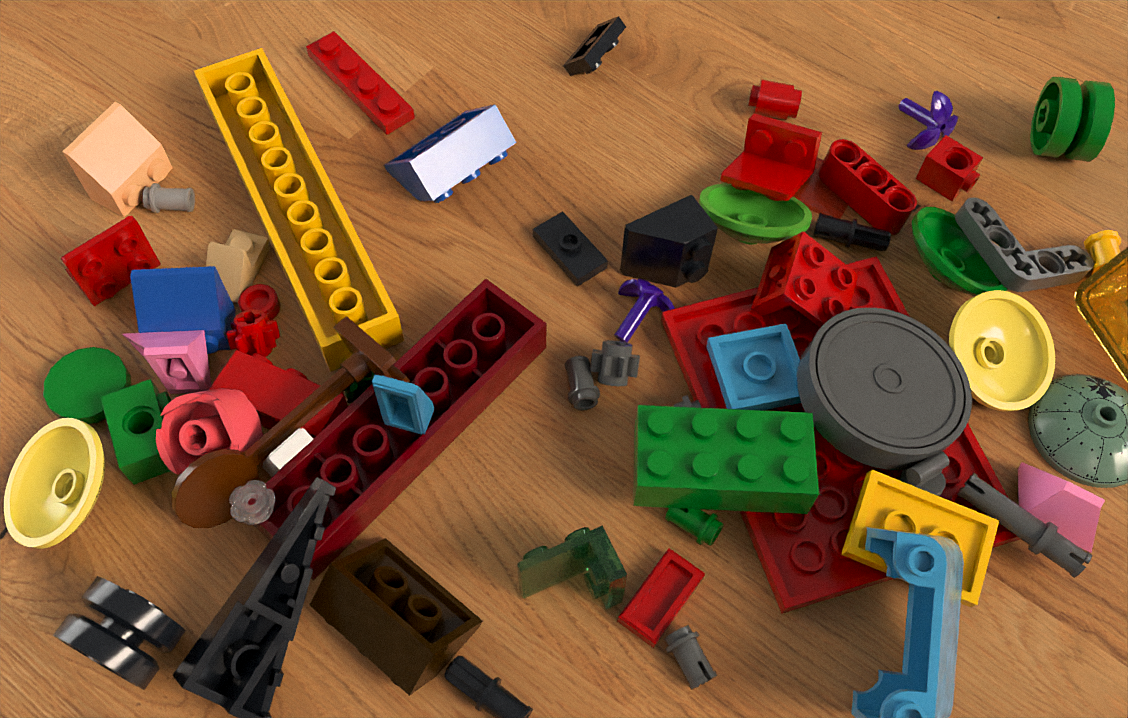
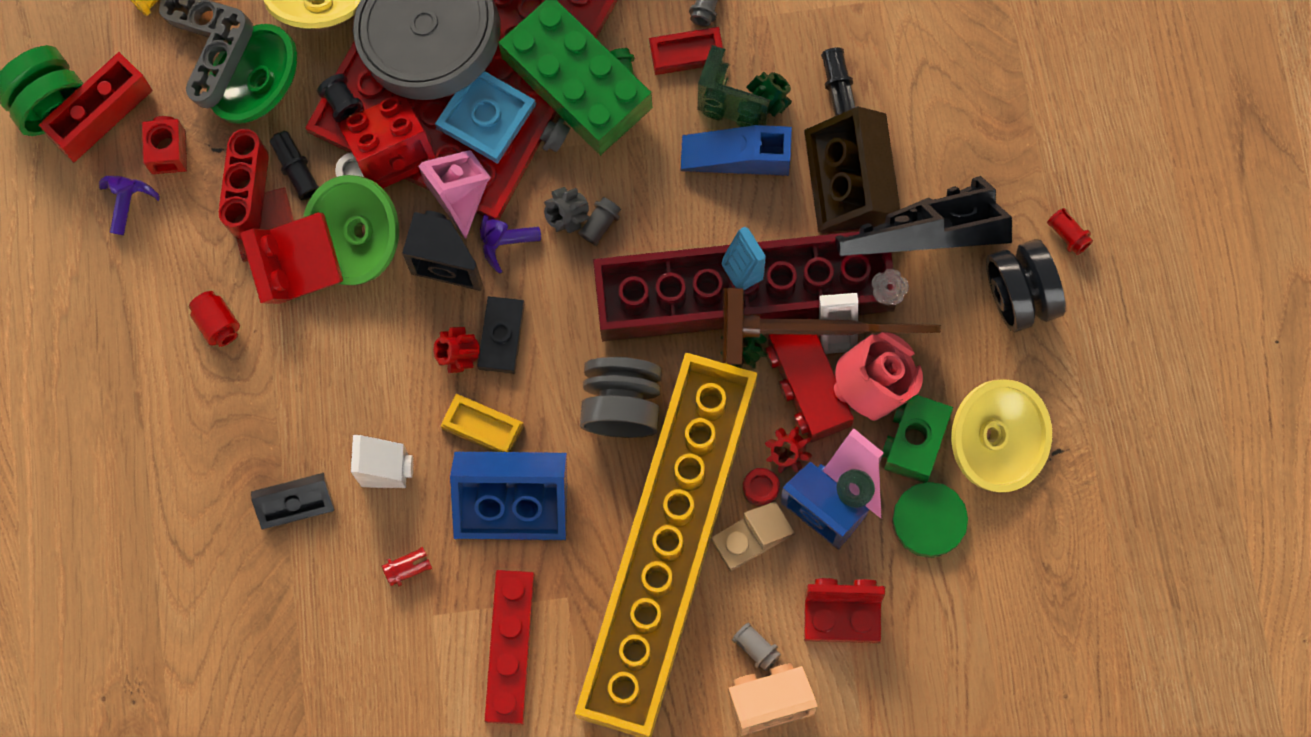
camera: 130 degrees left, 15 degrees up
(153, 323) = (865, 486): none -> clear green plate
(423, 256) = (621, 397): none -> dark grey wheel
(481, 63) = (403, 567): none -> red pin
(500, 542) = (739, 151): none -> blue slope
(519, 185) = (481, 425): none -> yellow tile
(542, 613) = (773, 88): none -> dark green gear
(561, 93) = (380, 463): none -> white slope
(588, 204) = (456, 349): none -> red gear
(715, 293) = (457, 185): none -> bright pink slope
(878, 285) = (339, 97): none -> black bush
(1025, 147) = (96, 107): none -> red brick

